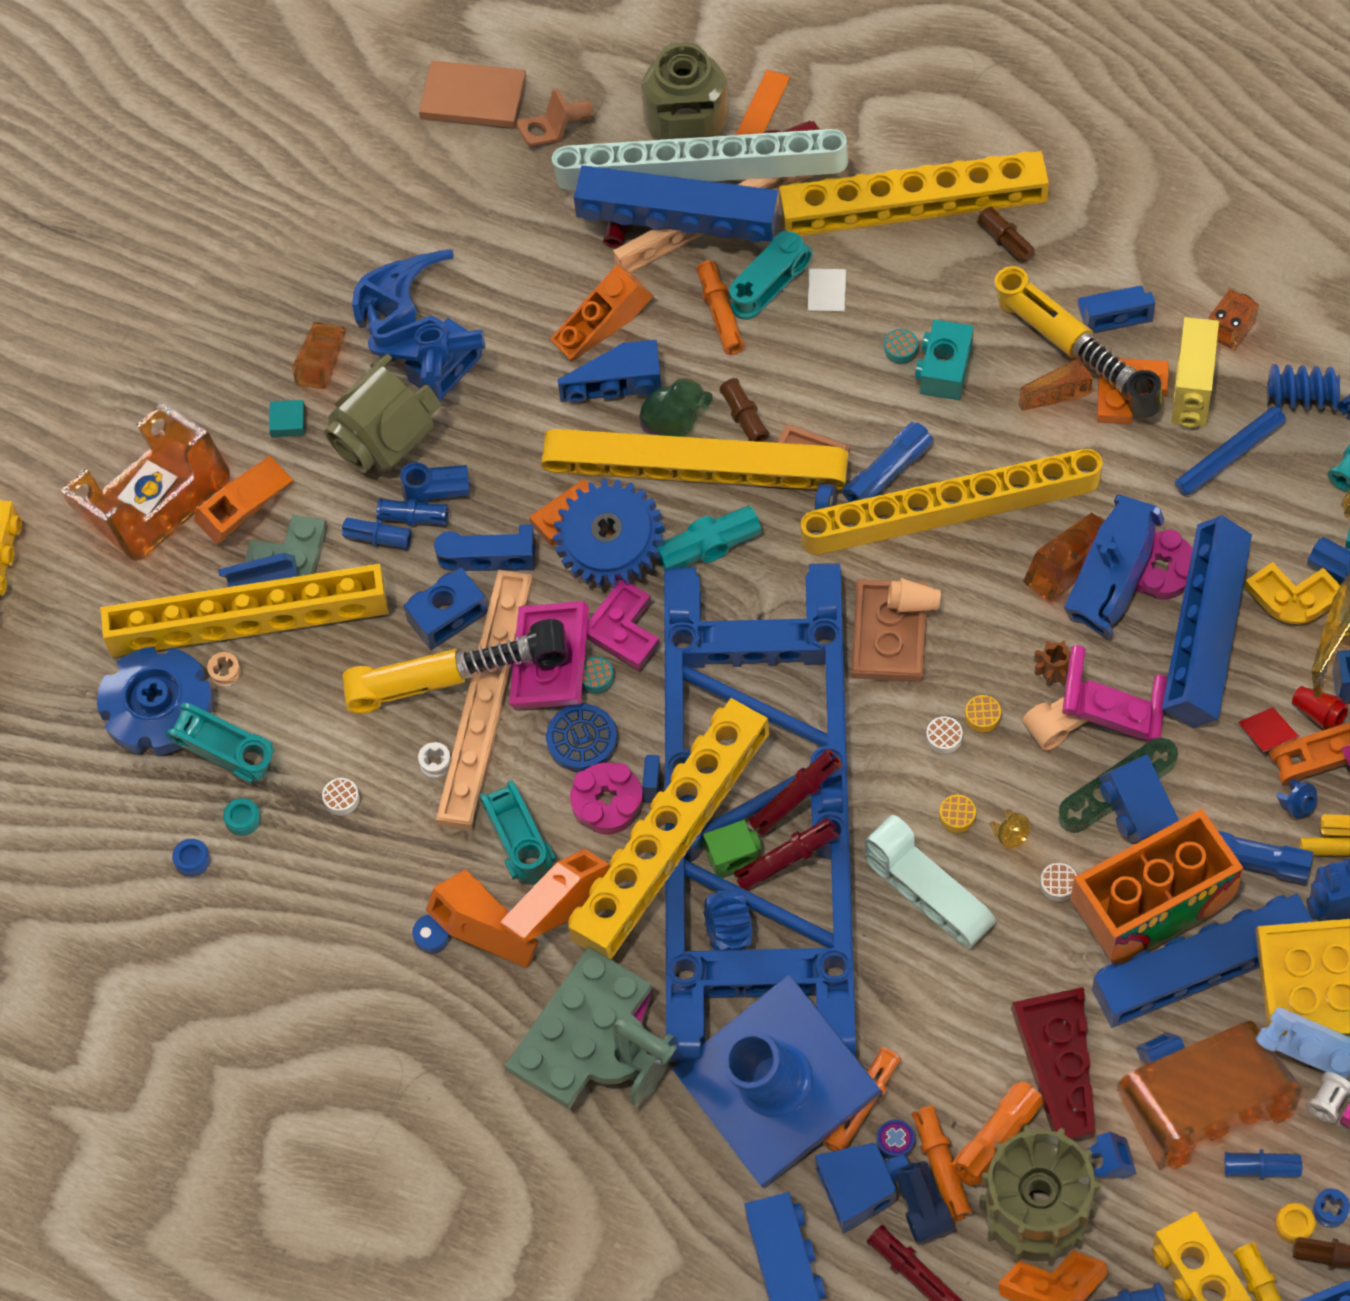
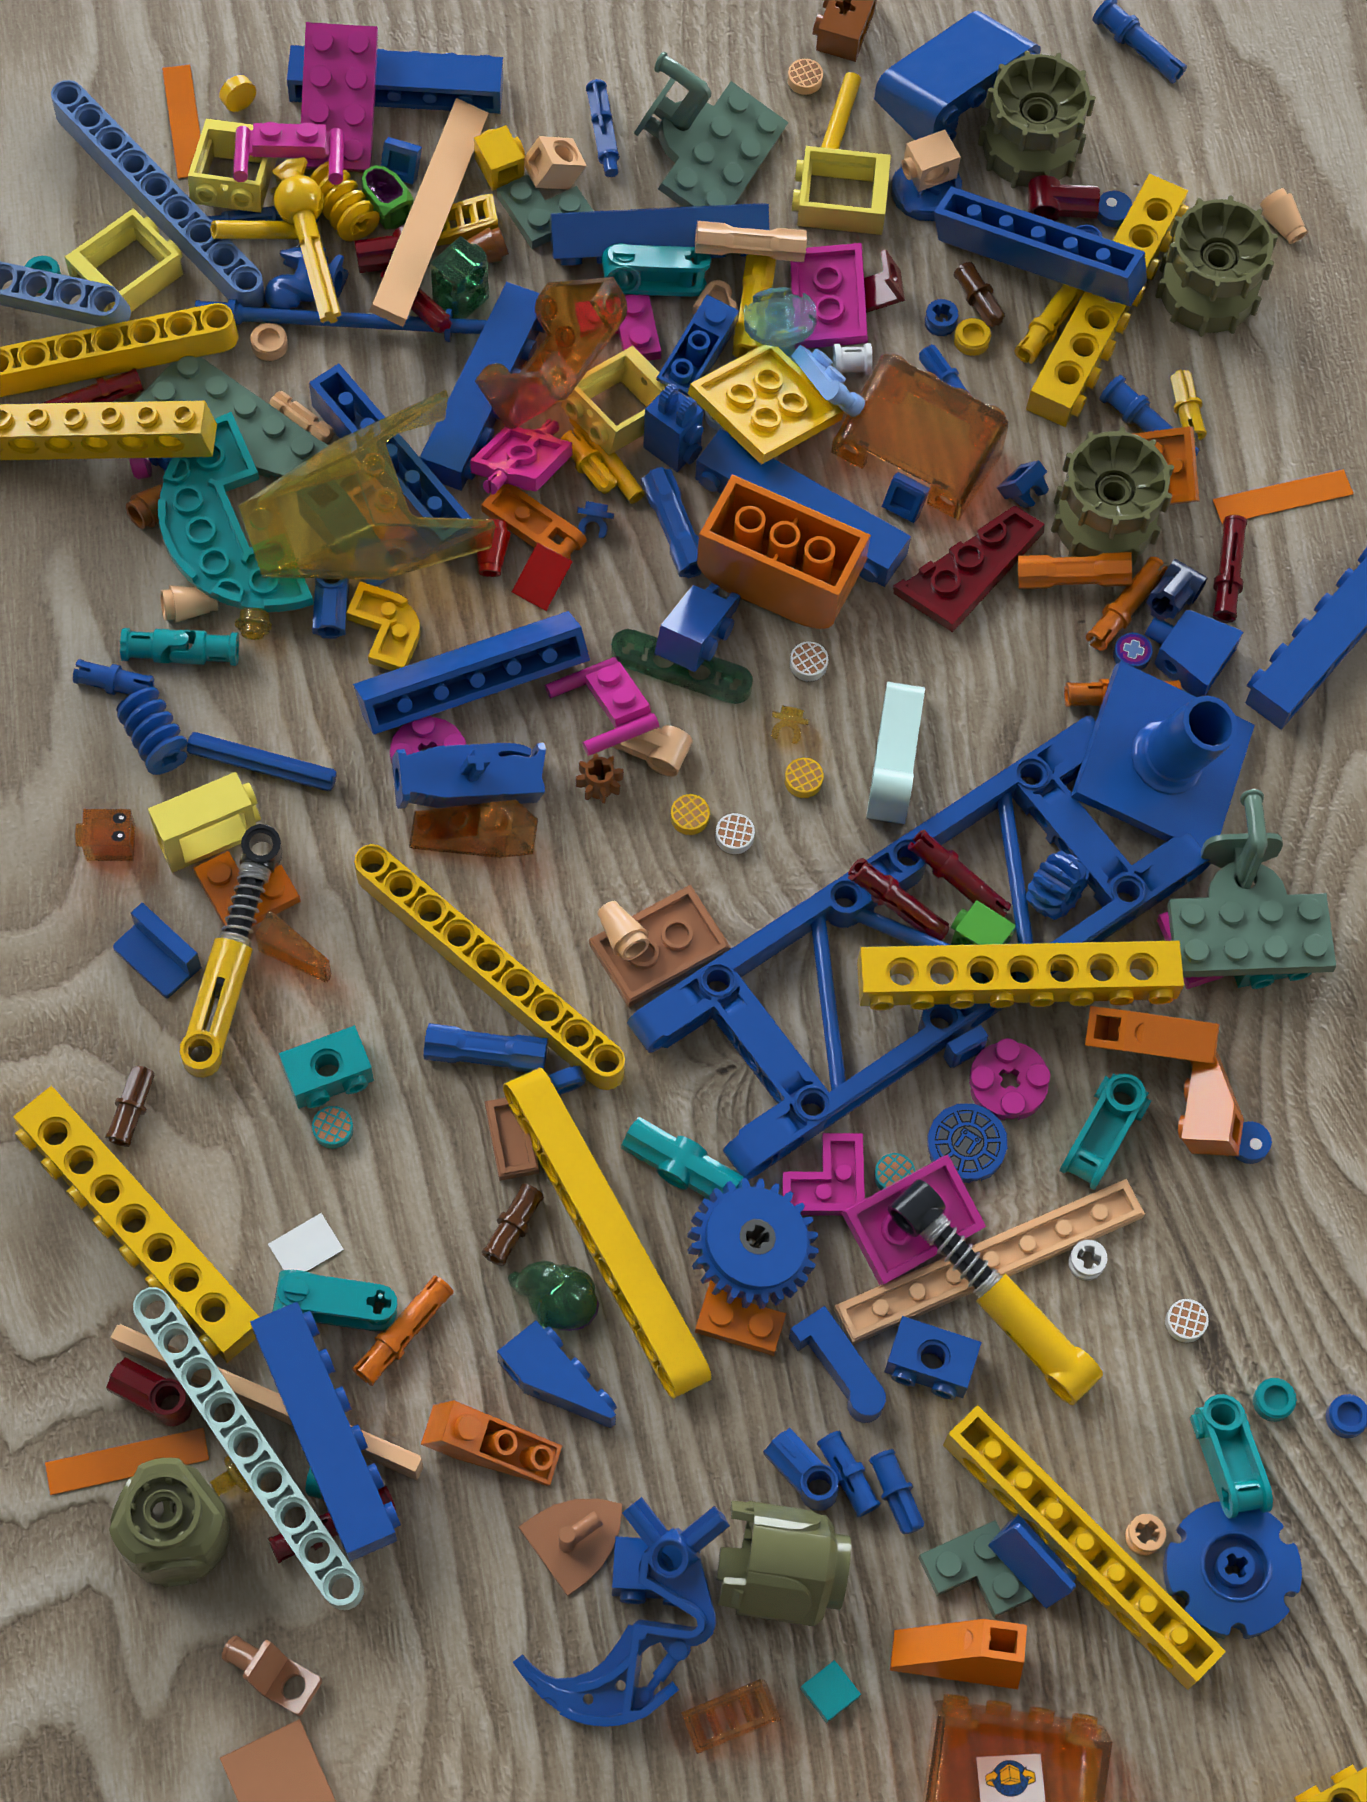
camera: 135 degrees left, 5 degrees up
(507, 334) = (574, 1538): none -> nougat shield

